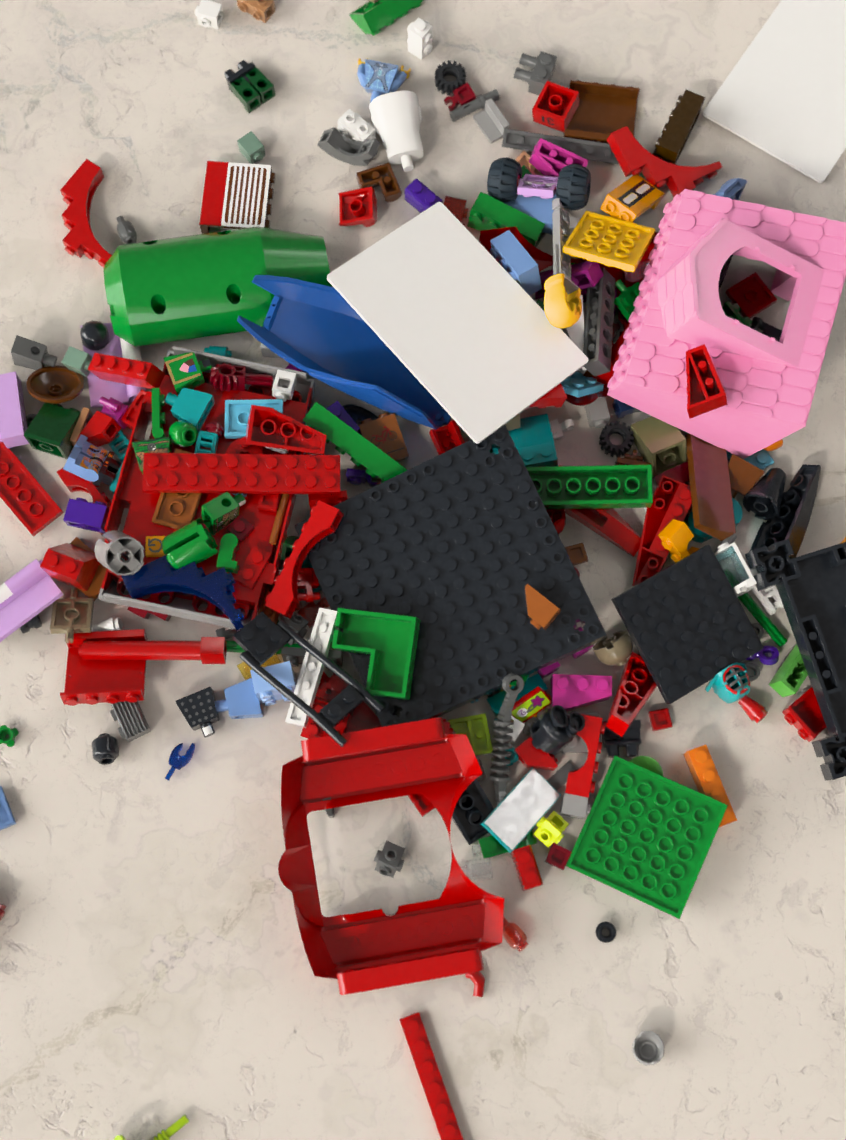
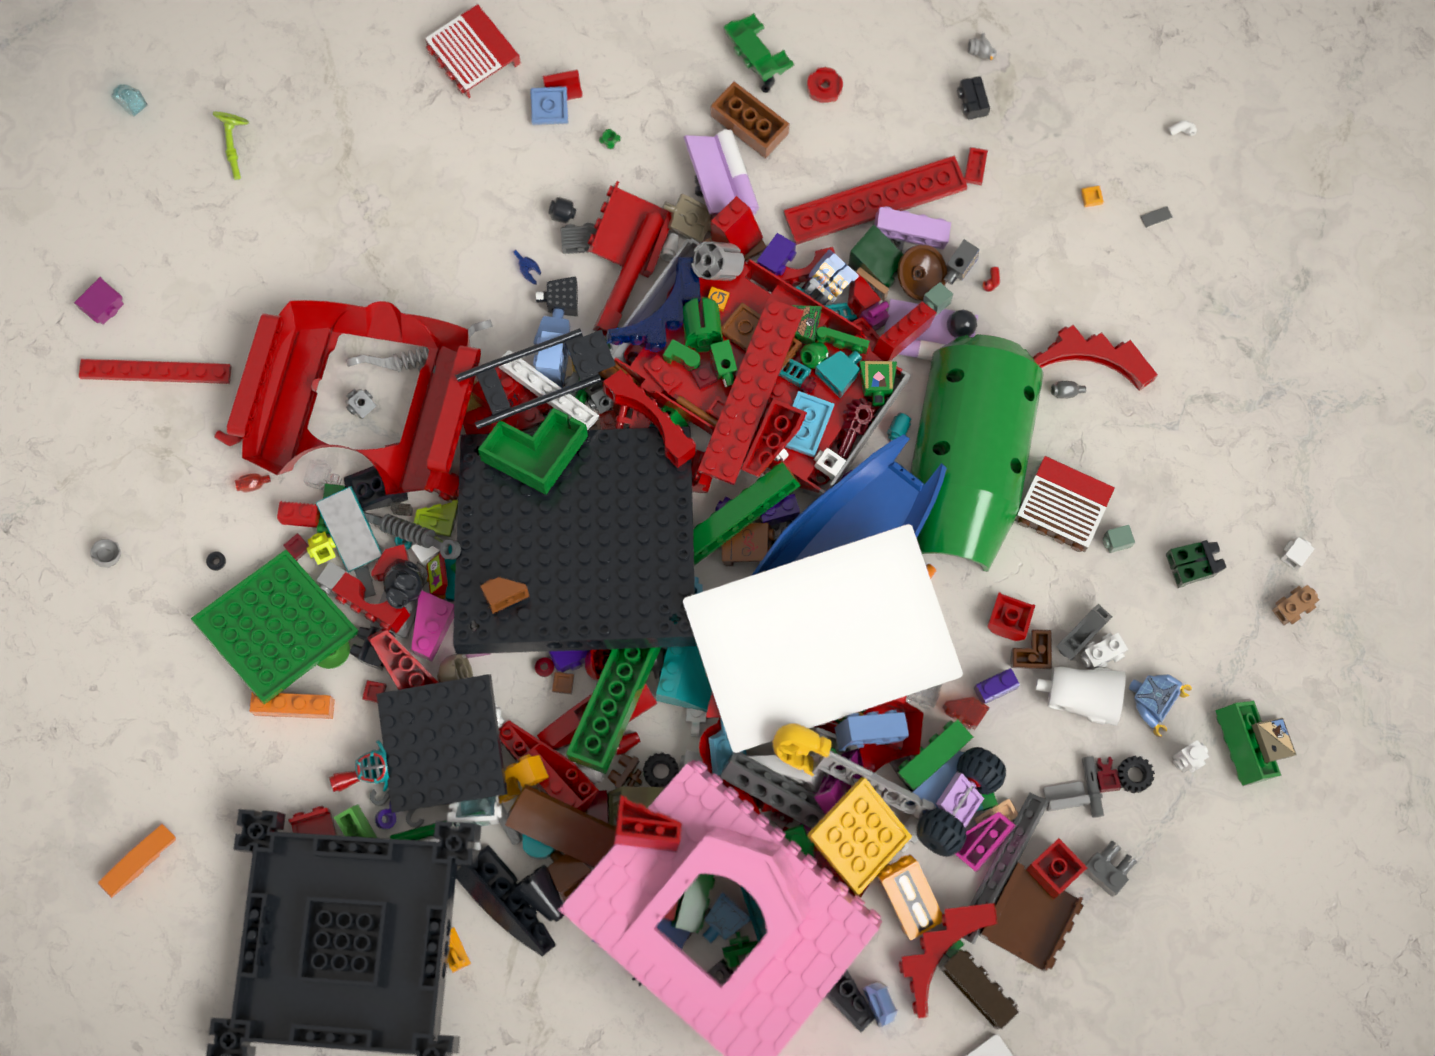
camera: 115 degrees right, 0 degrees up
(39, 325) = (994, 281): none -> red arm
(333, 845) = (395, 362): none -> light grey piece

